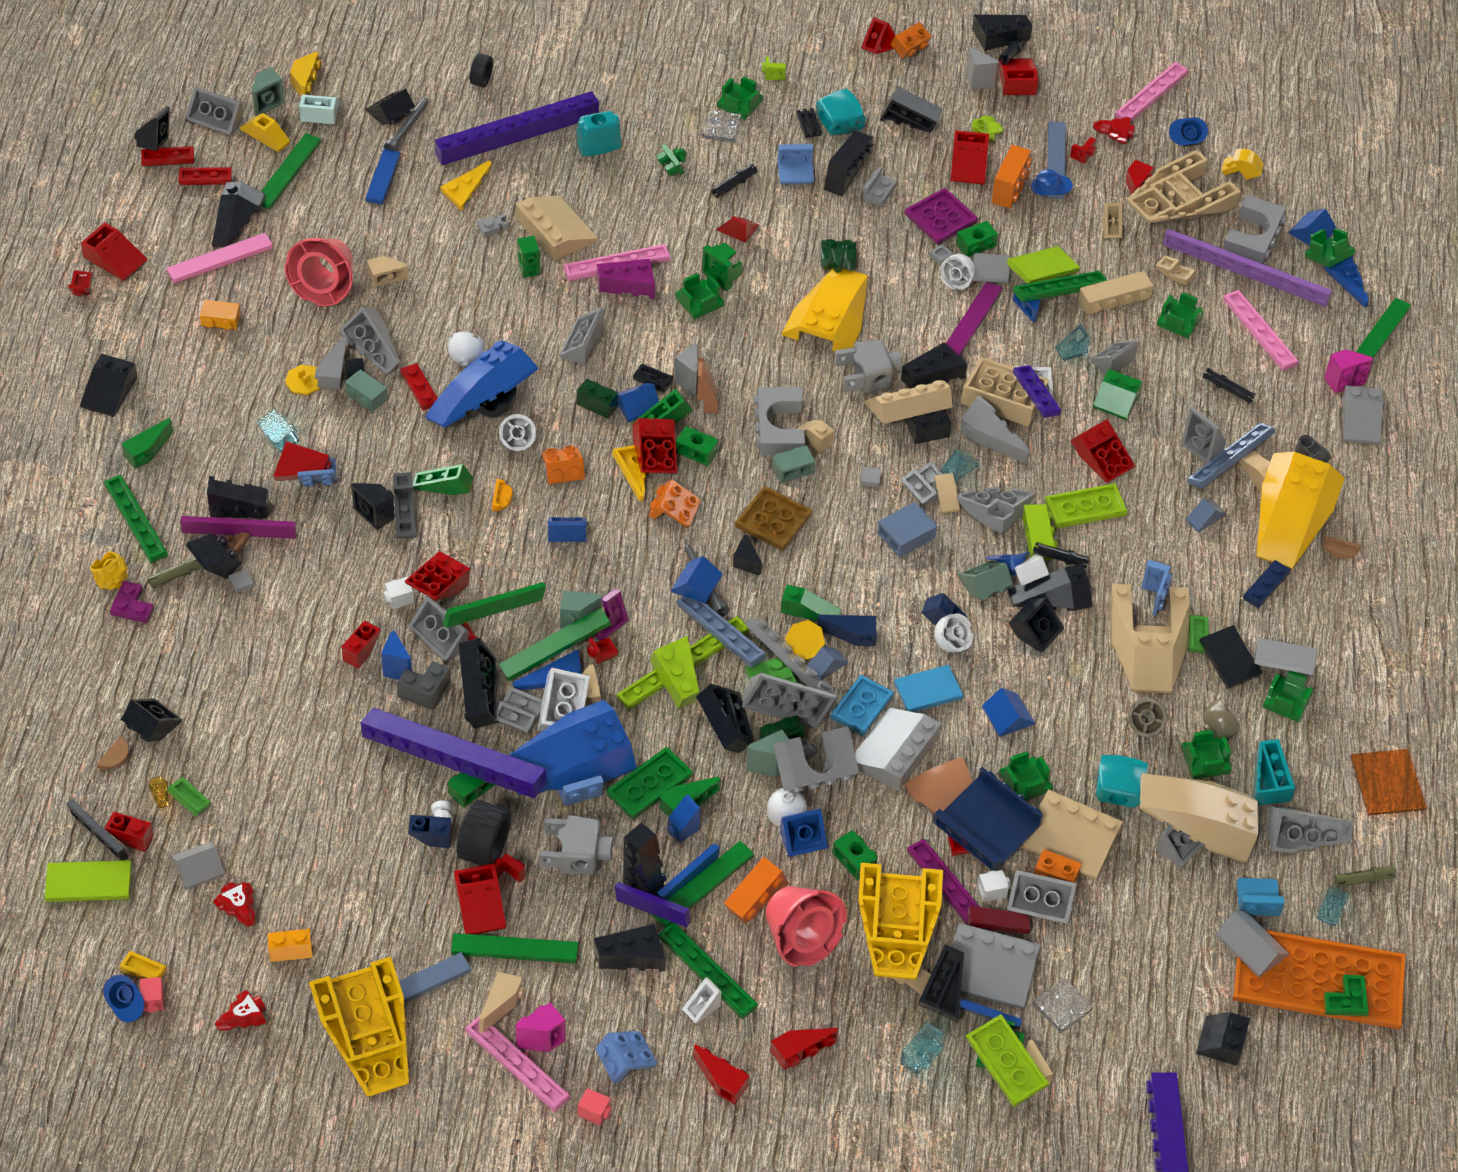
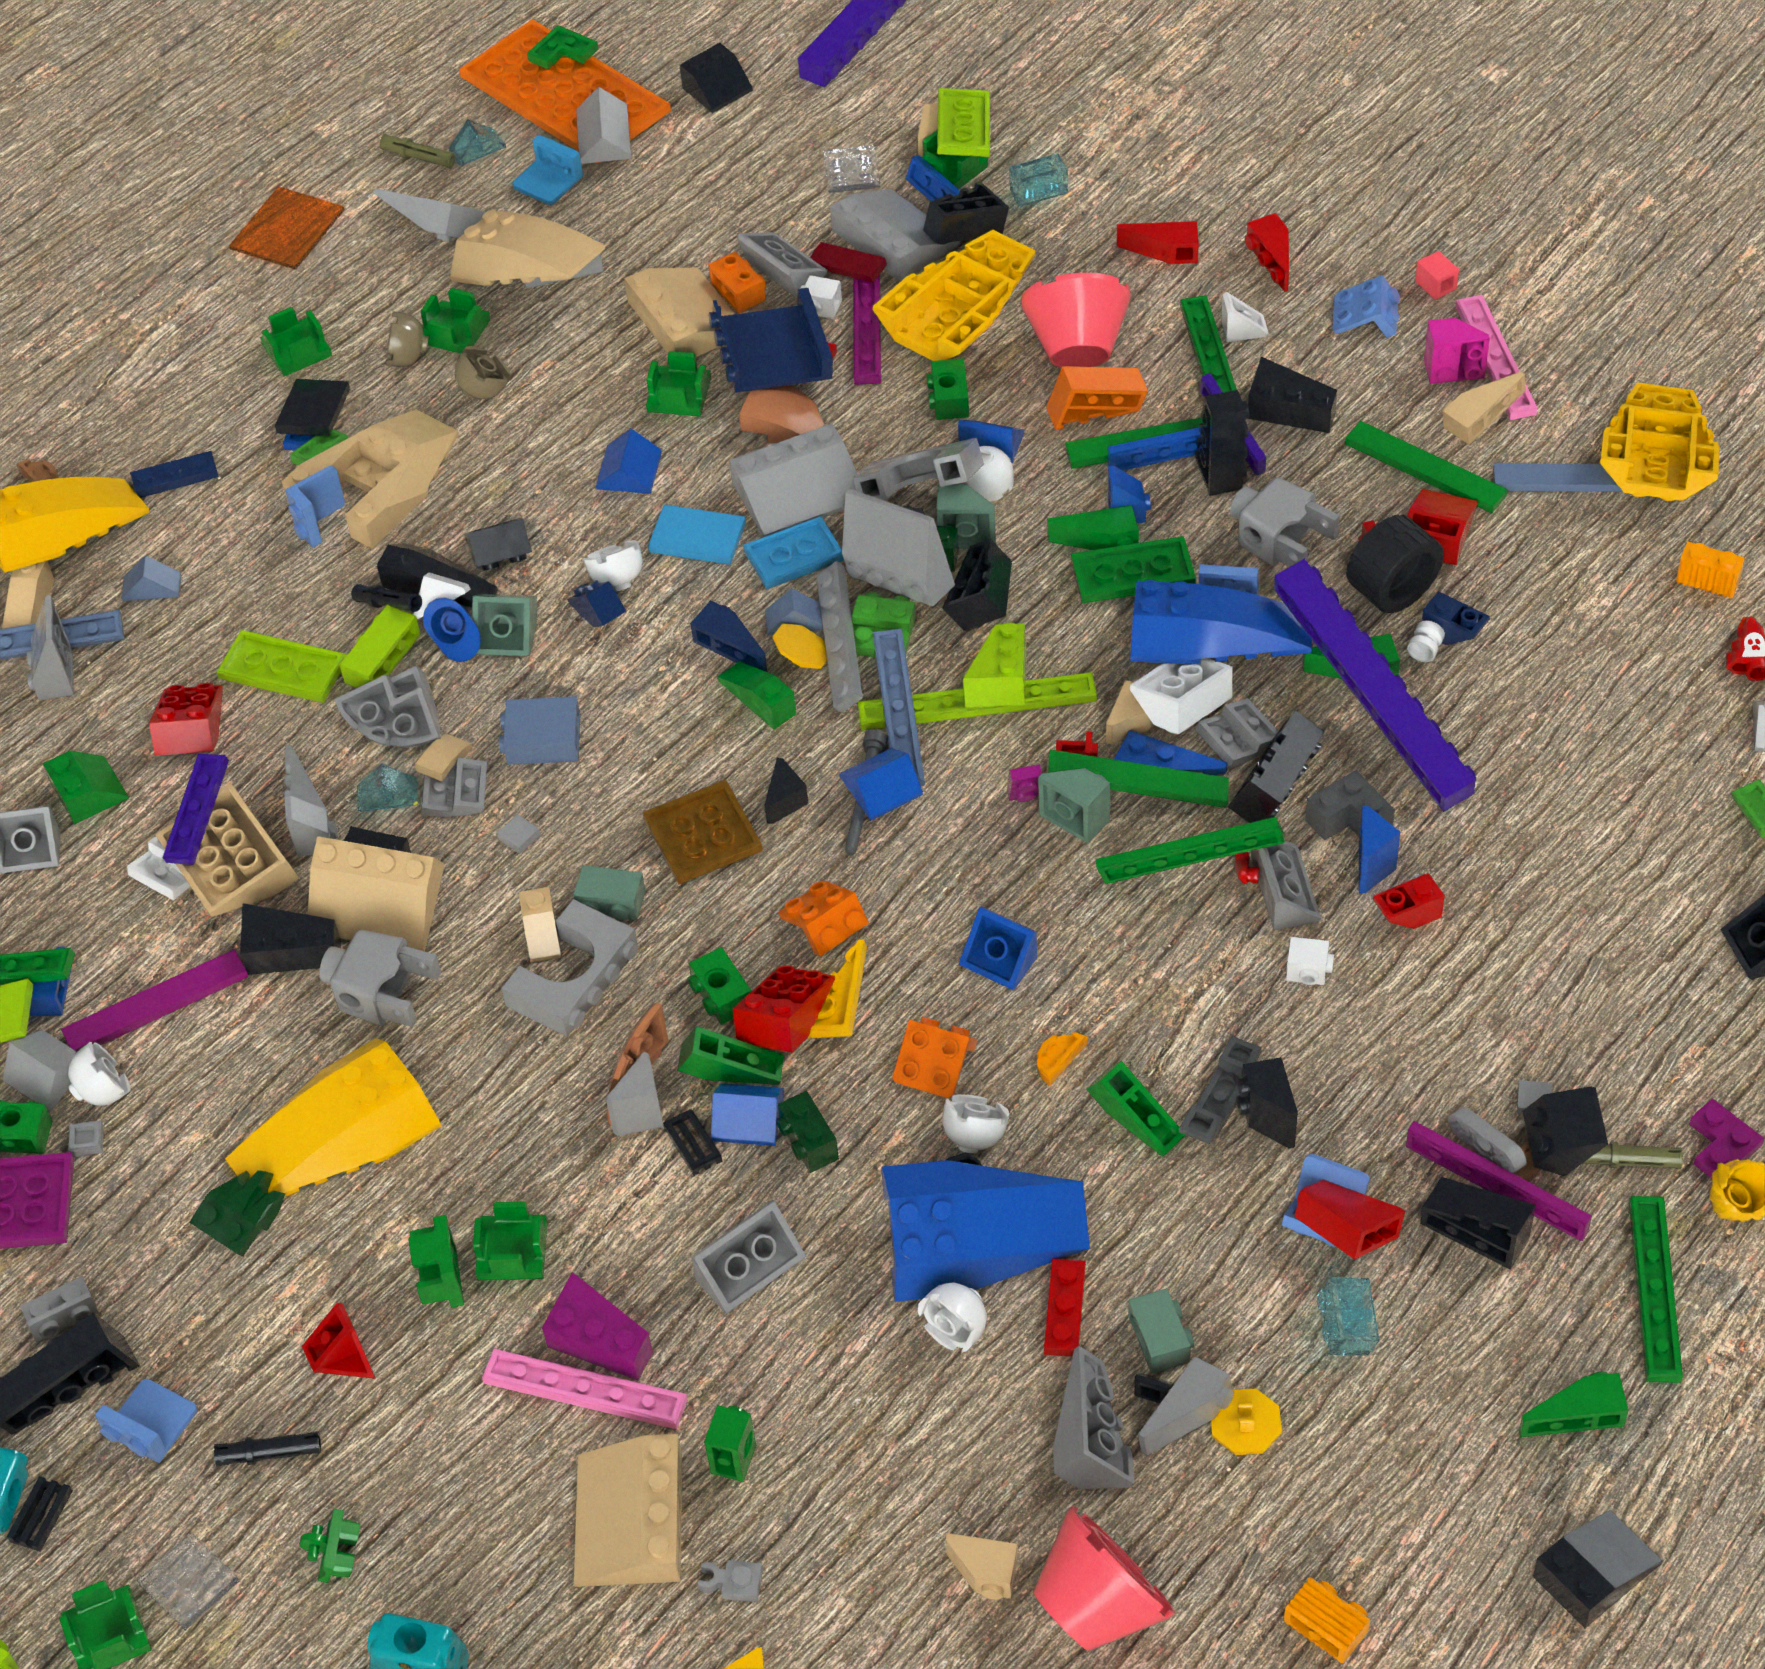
camera: 140 degrees left, 0 degrees up
(253, 539) = (1486, 1140): none -> light grey beam
(440, 577) = (1245, 936): red slope -> none
(1075, 344) = (60, 883): clear light blue slope -> none
(1120, 780) = (581, 327): teal piece -> none
(1272, 776) = (410, 266): teal wedge -> none
(1285, 656) = (261, 365): light grey slope -> none

